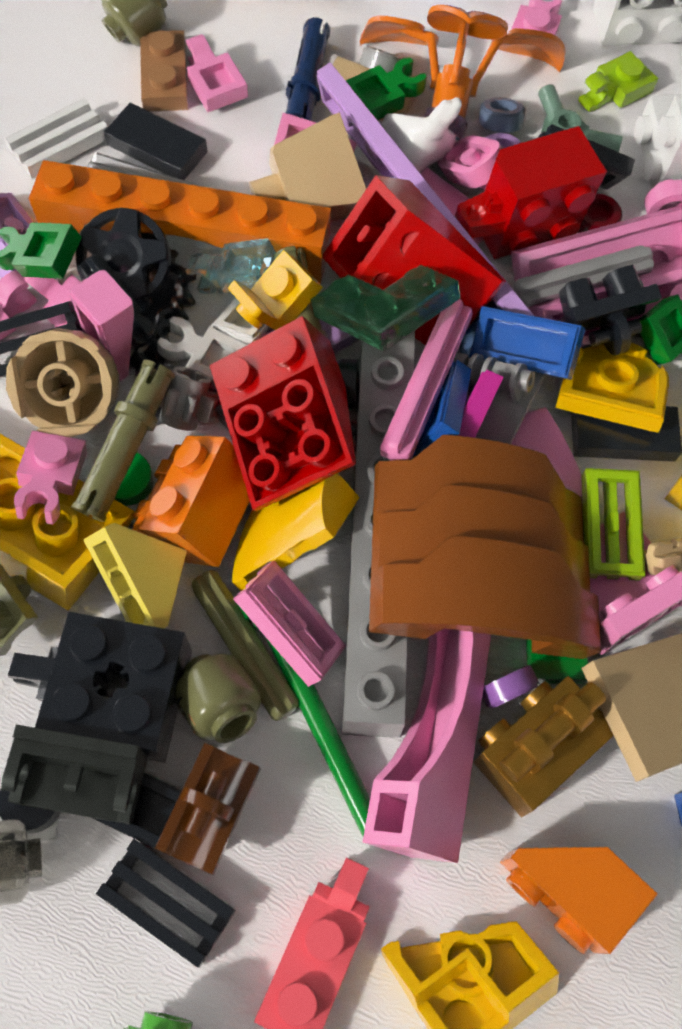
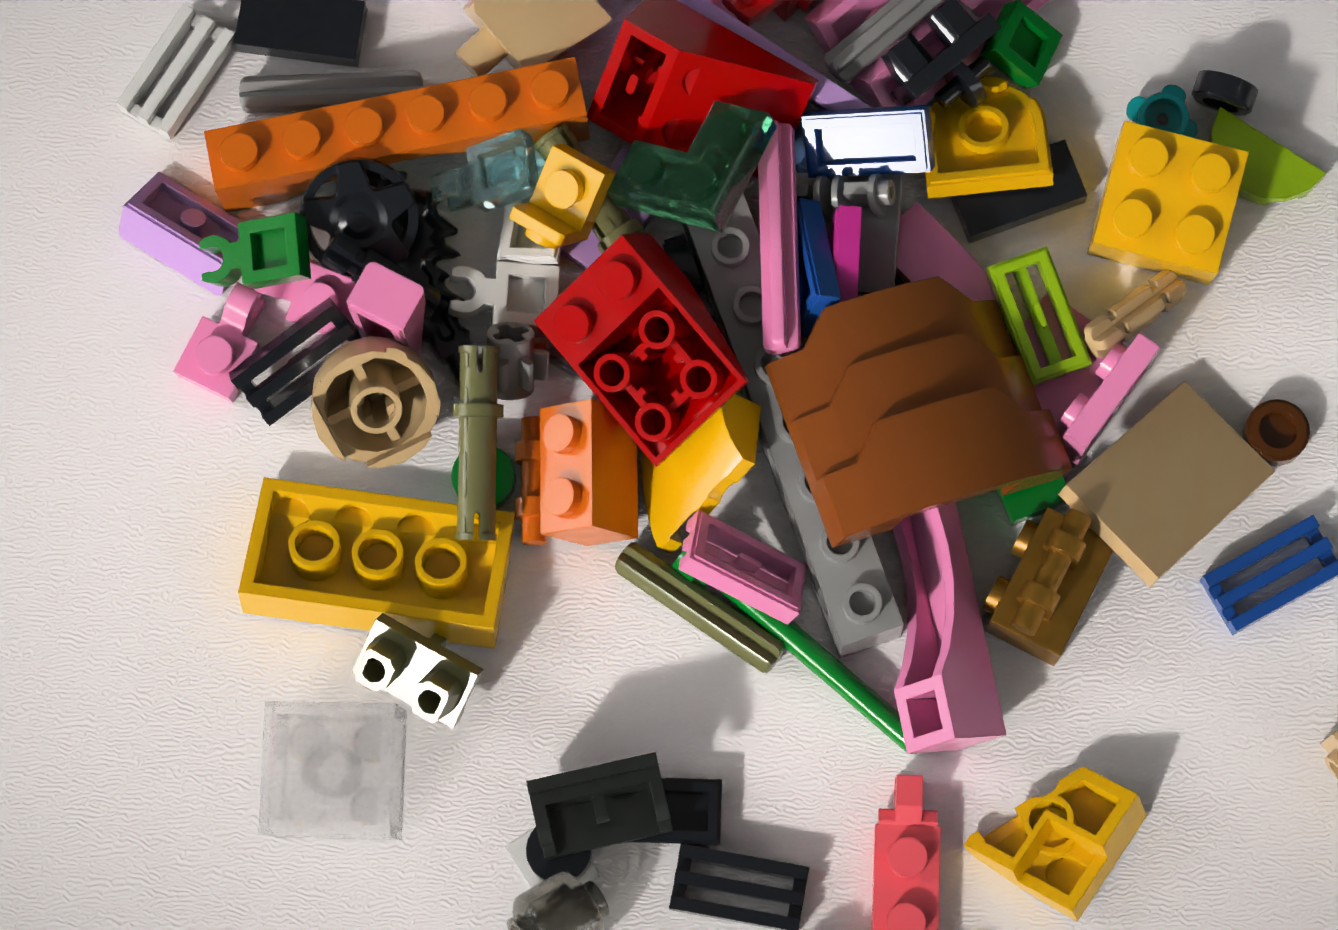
camera: 15 degrees left, 10 degrees up
(48, 468) = (405, 504): bright pink plate -> none
(93, 657) = (557, 682): black hinge -> none
(138, 572) = (562, 583): light yellow slope -> none
(208, 808) = (744, 783): reddish brown hips -> none
(217, 697) = (700, 673): olive head -> none
(509, 687) = (993, 540): medium lavender tile -> none
(585, 889) = (1136, 709): orange slope -> none

